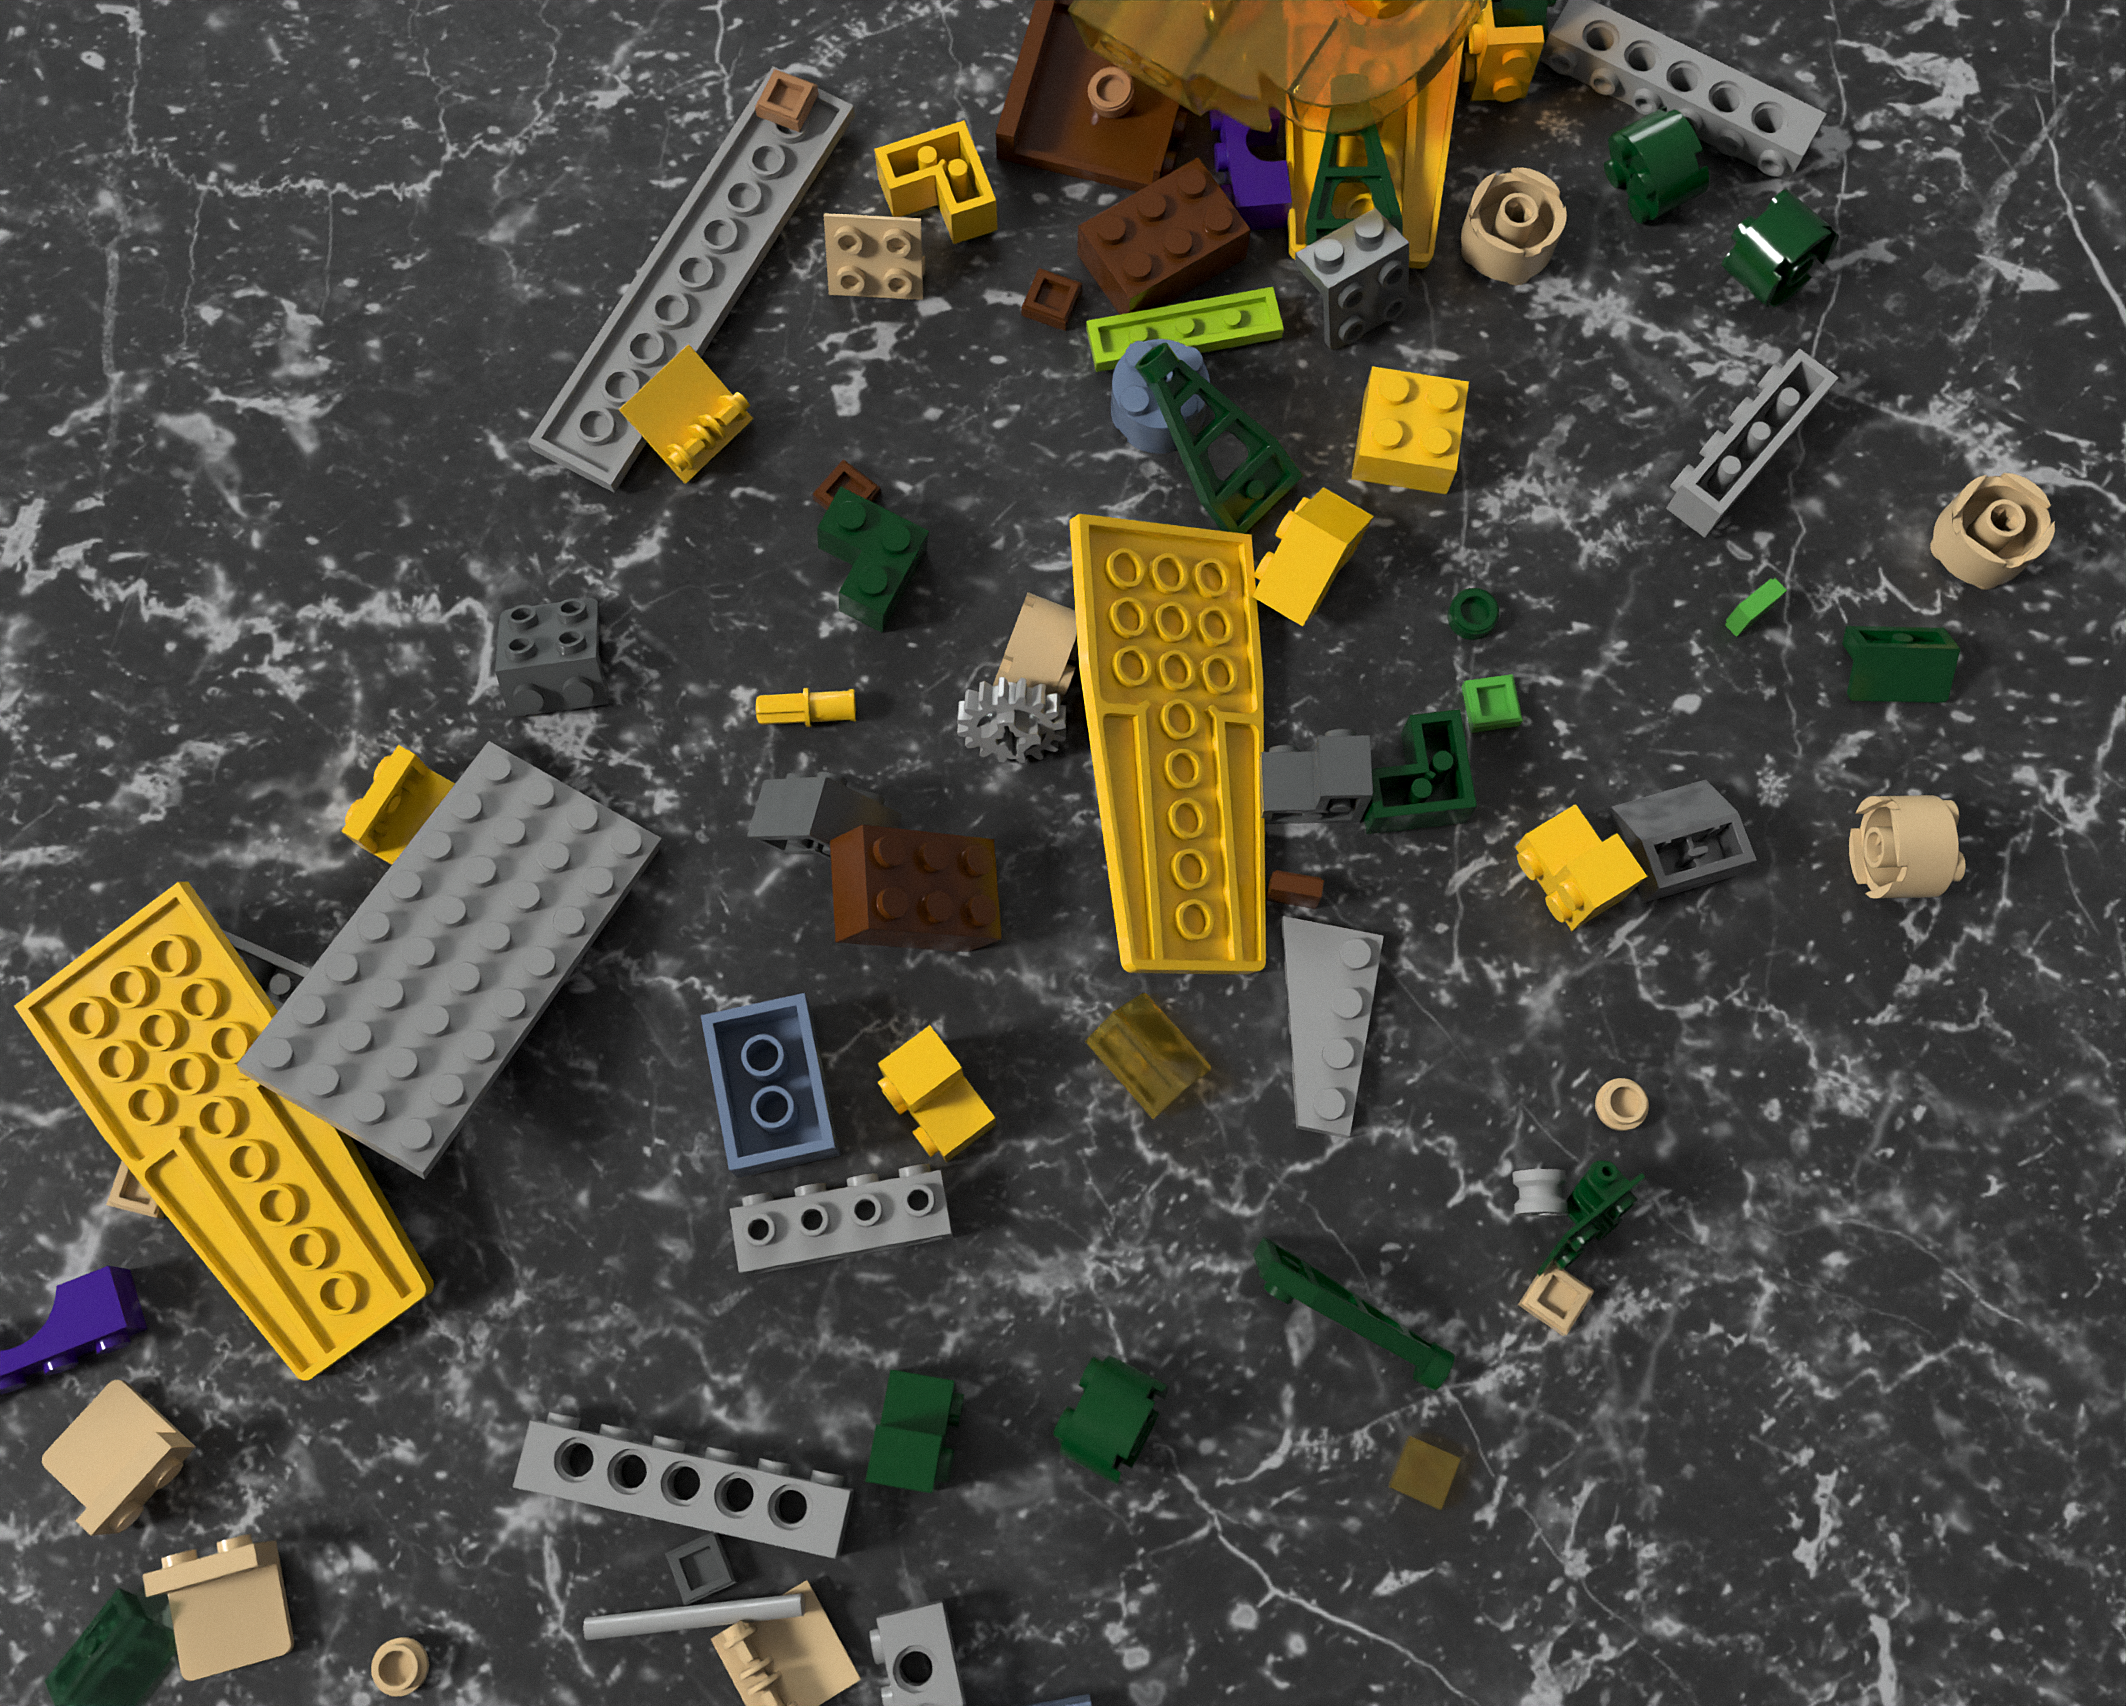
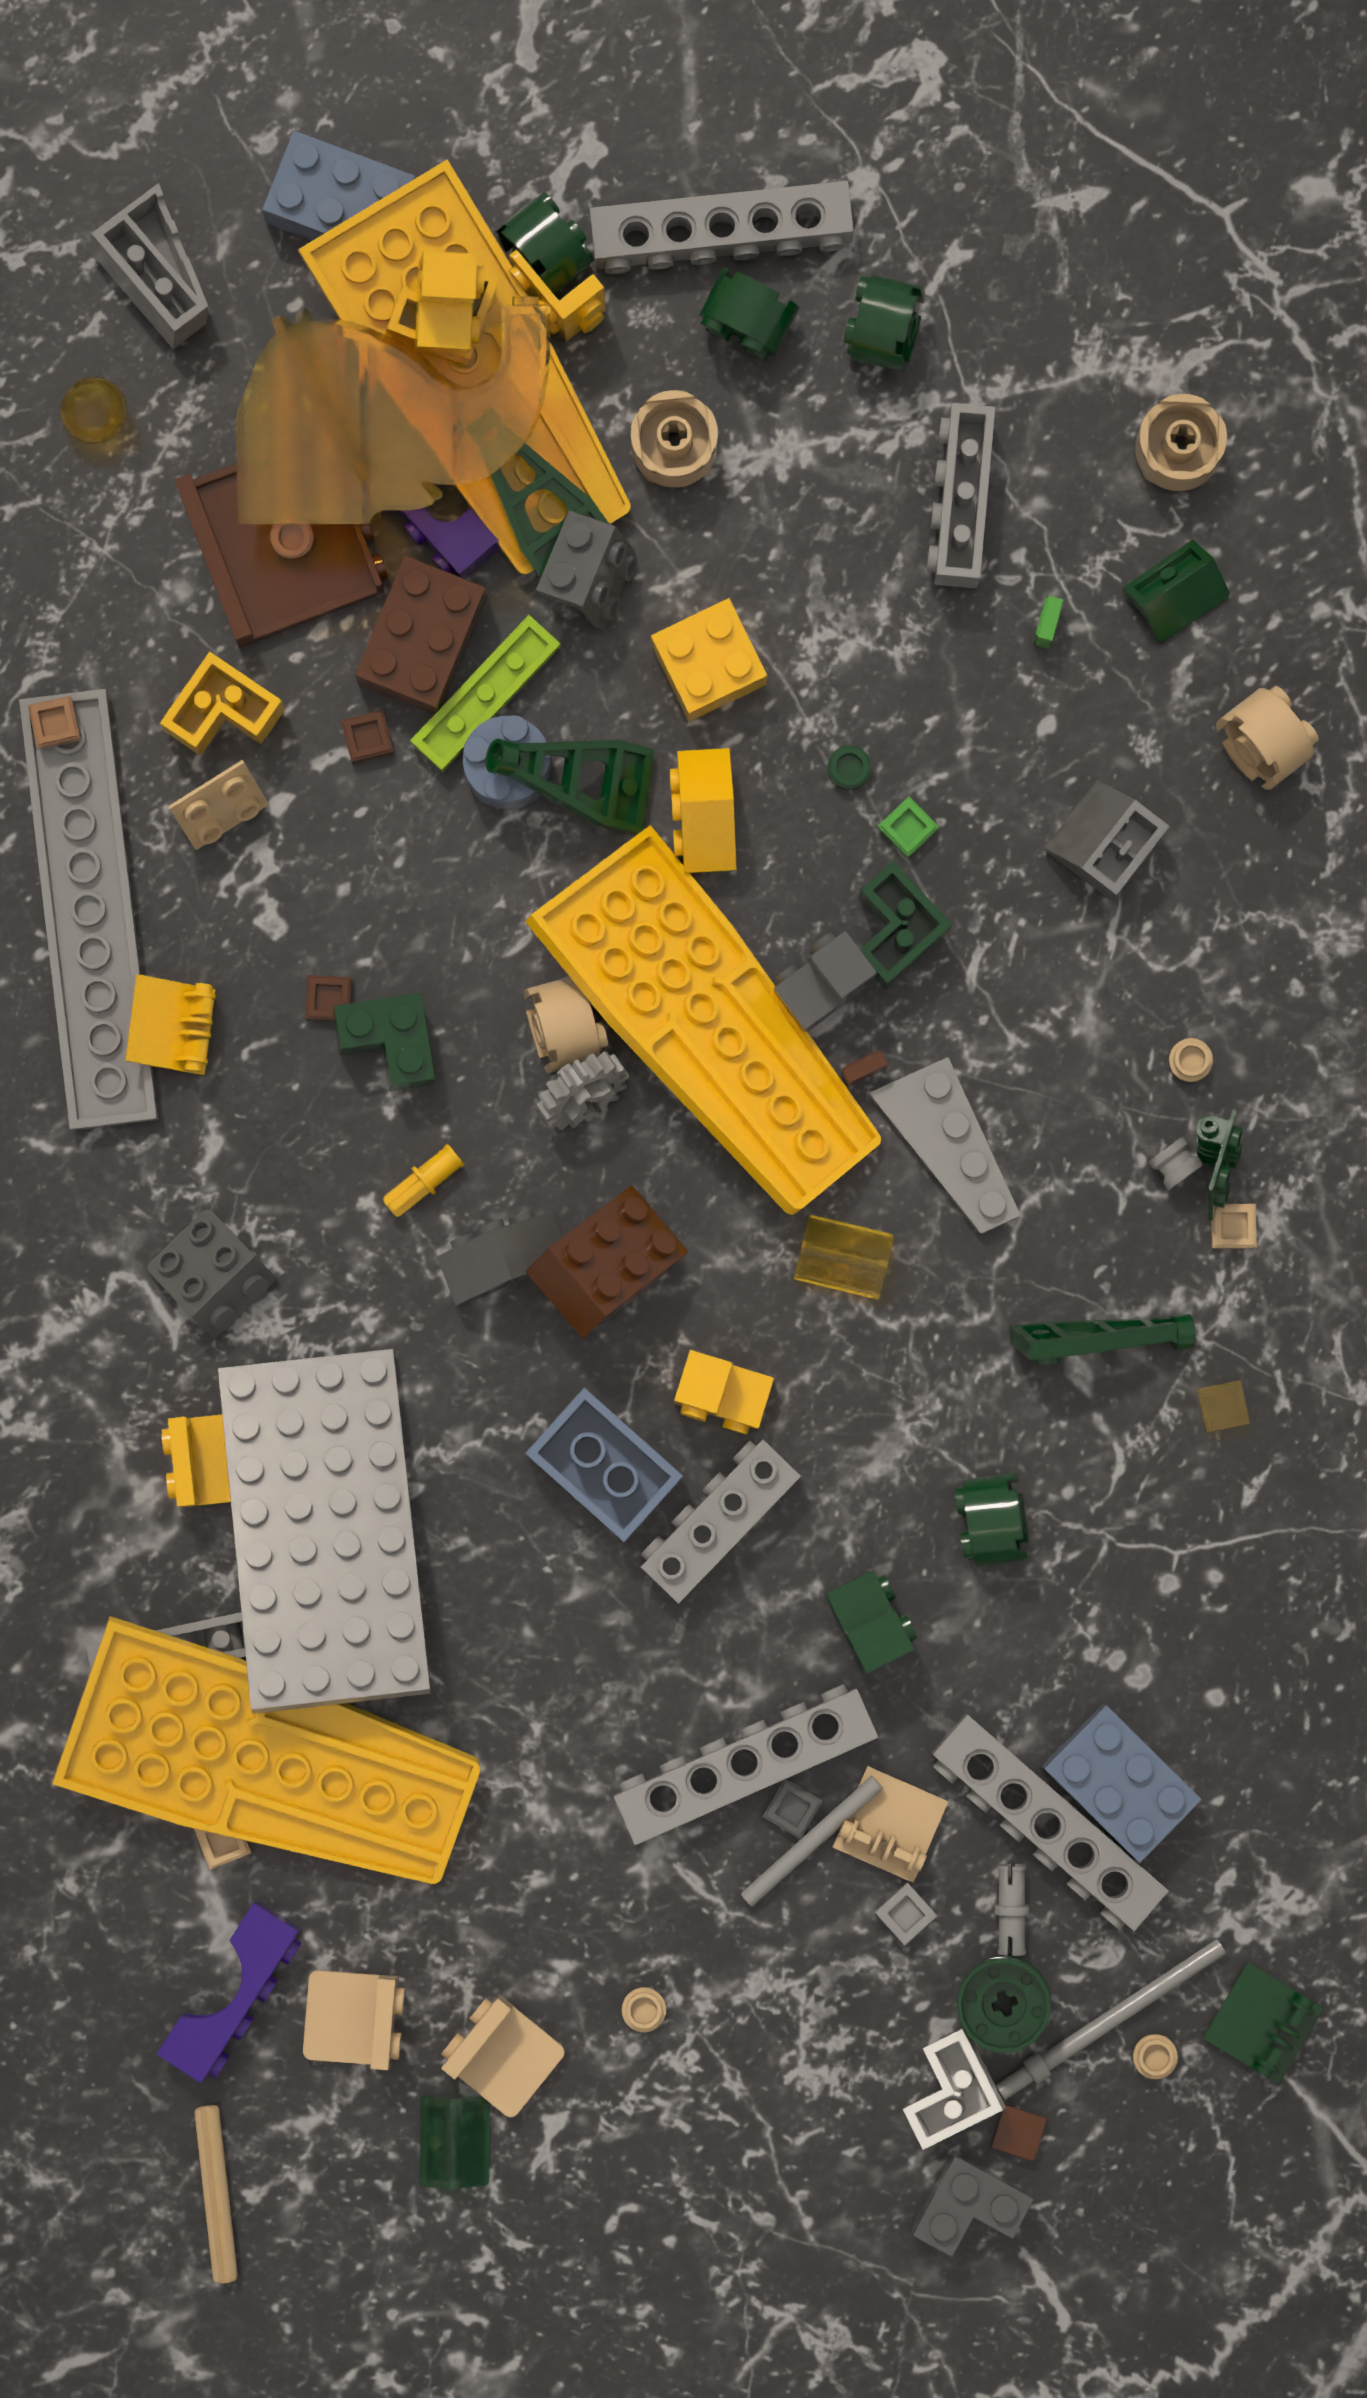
camera: 35 degrees left, 10 degrees up
(1577, 867) = (1048, 914): yellow brick -> none

